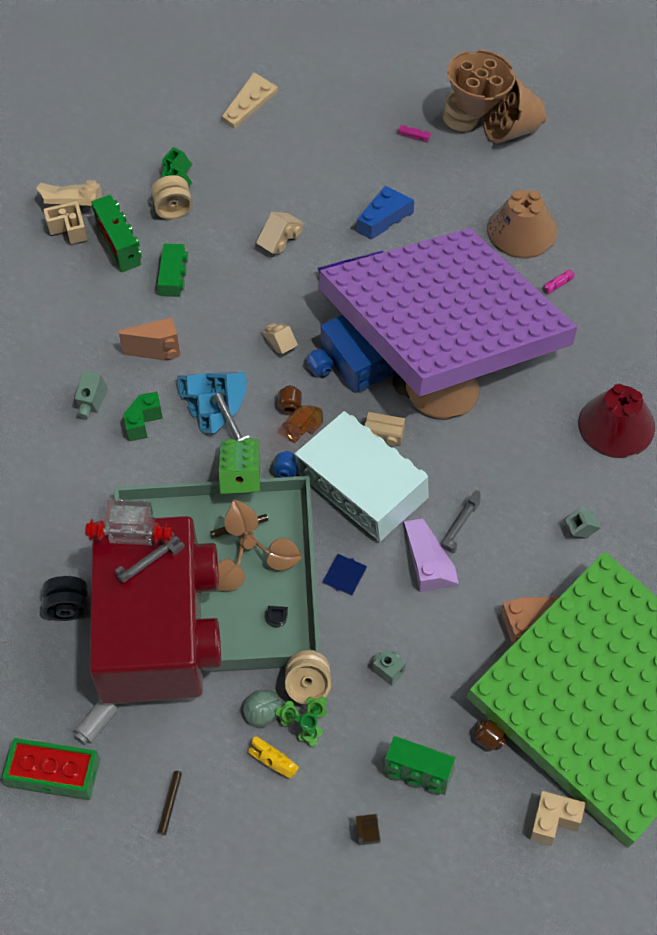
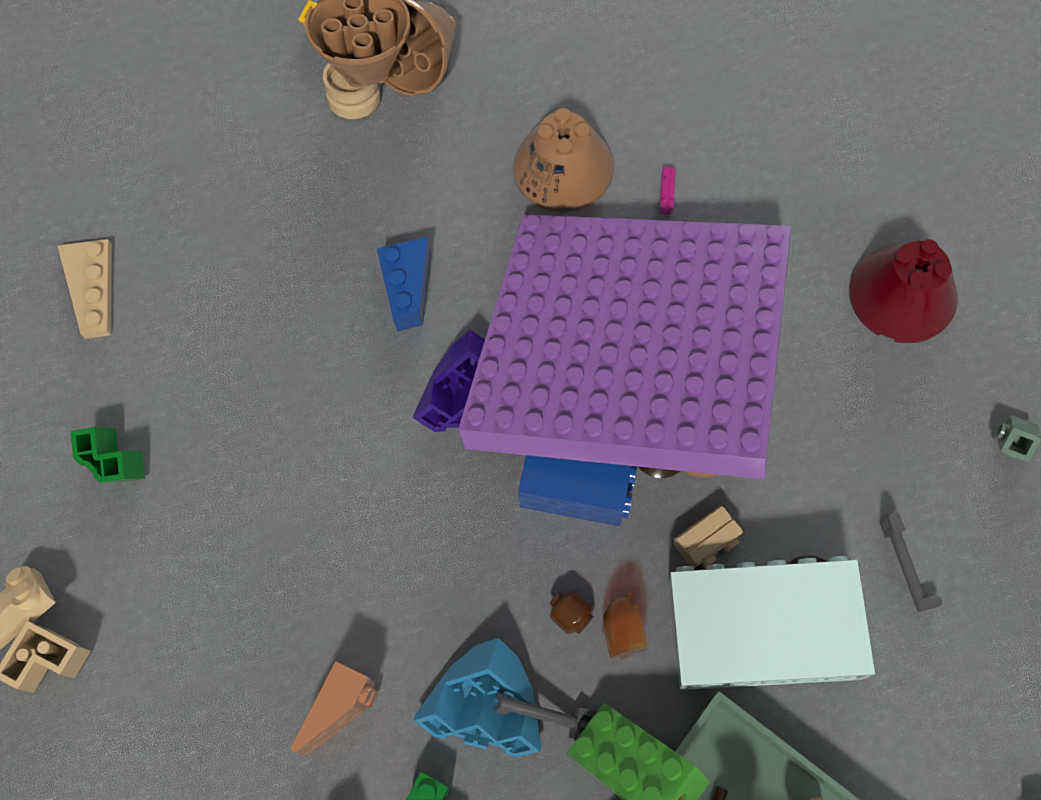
camera: 45 degrees left, 10 degrees up
(117, 233) = (124, 609): green brick -> none
(171, 197) = (142, 497): tan wheel -> none
(172, 270) = (246, 587): green brick -> none
(278, 230) = (319, 416): tan brick -> none
(280, 337) = (470, 545): tan slope -> none
(285, 465) = (662, 699): blue head -> none
(319, 363) = (549, 531): blue head -> none
(345, 574) = (870, 759): clear blue piece -> none
(414, 133) = (326, 158): dark pink axle -> none
(429, 559) = (929, 642): lavender wedge -> none

